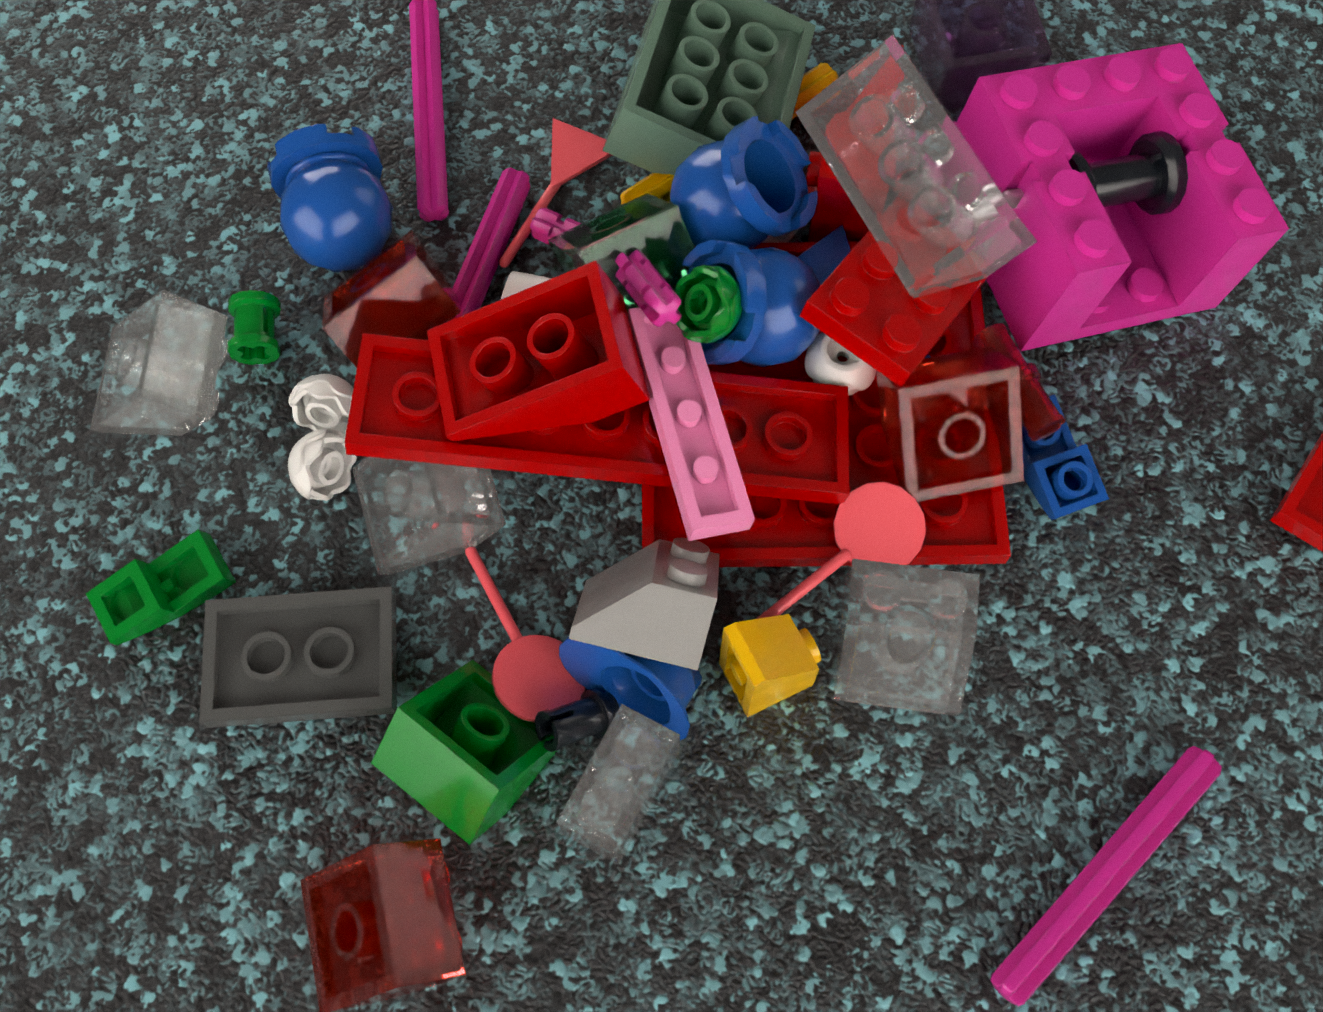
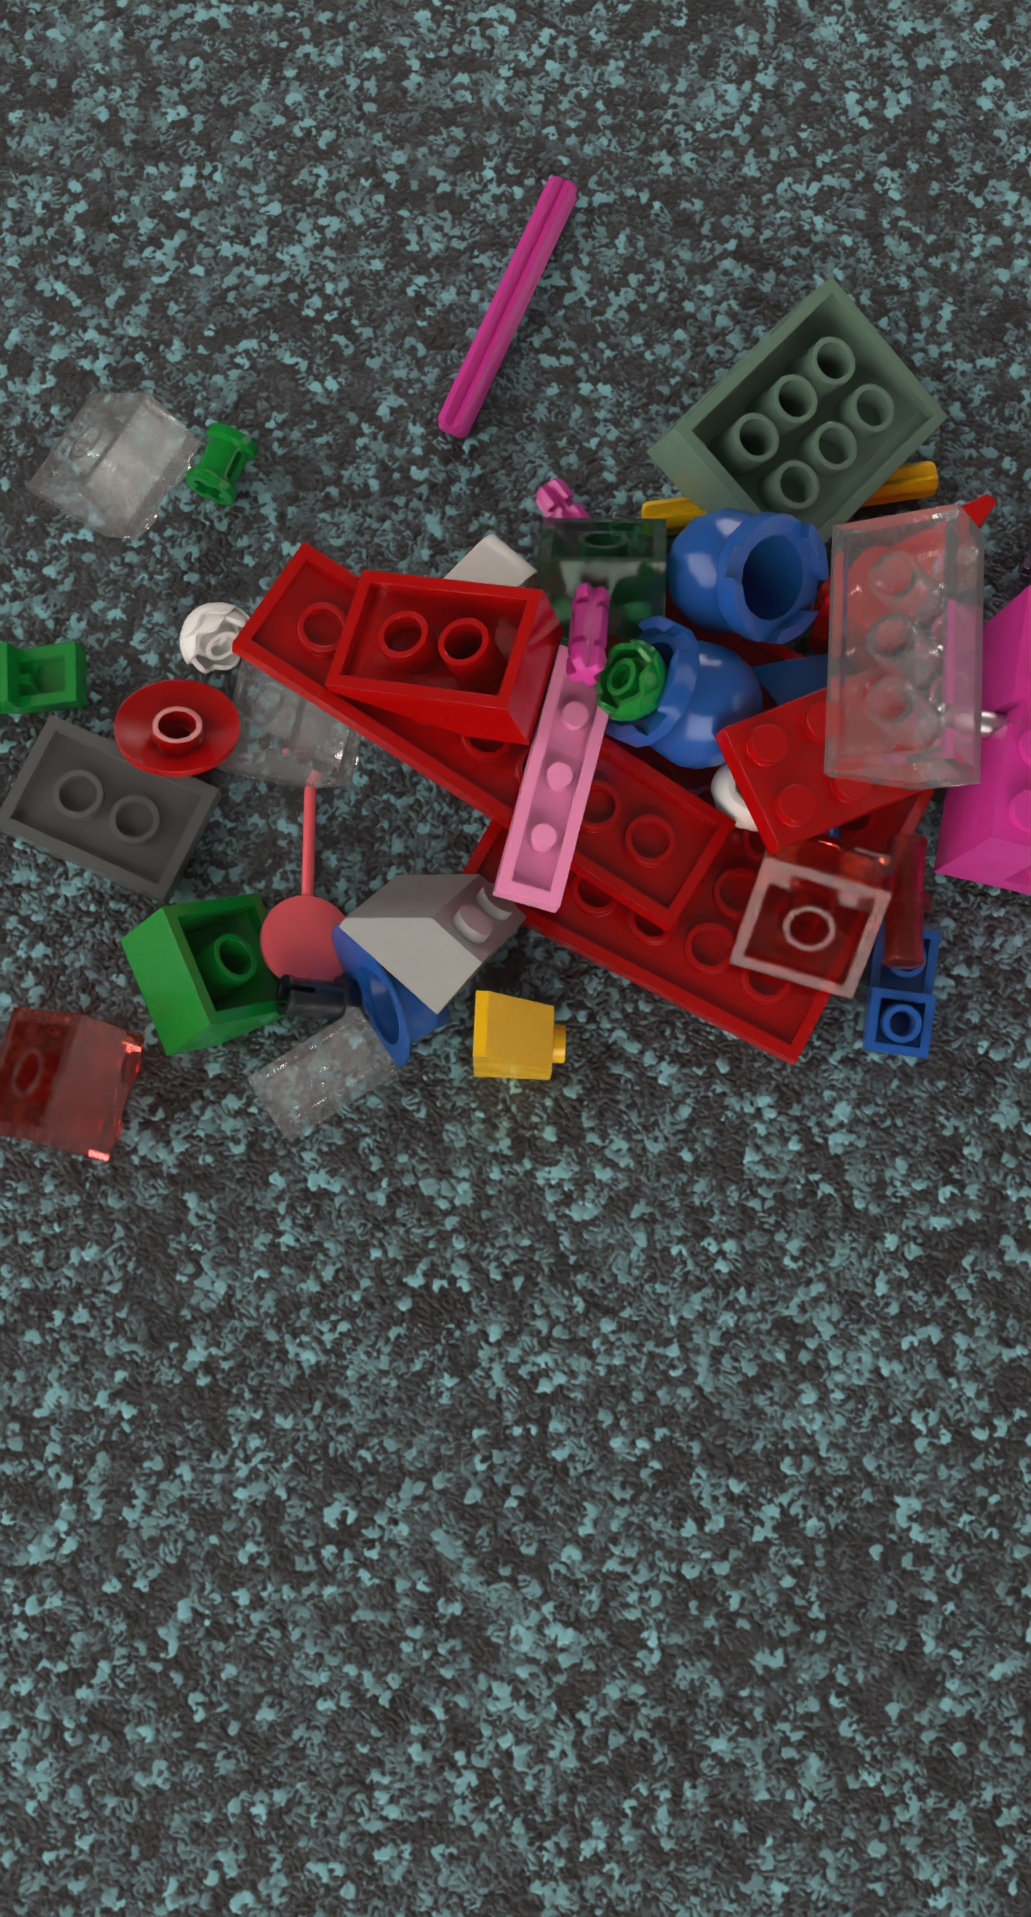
camera: 25 degrees right, 10 degrees up
(322, 402) = (245, 575): white plate -> none
(327, 555) = (177, 728): none -> red dish
(331, 196) = (356, 373): blue tile -> none
(390, 296) = (358, 507): clear red slope -> none
(491, 239) = (475, 500): dark pink axle -> none
(572, 154) = (625, 432): coral piece -> none
(873, 525) = (682, 973): coral piece -> none
(906, 636) = (652, 1082): clear slope -> none
(1105, 876) = (707, 1383): dark pink axle -> none

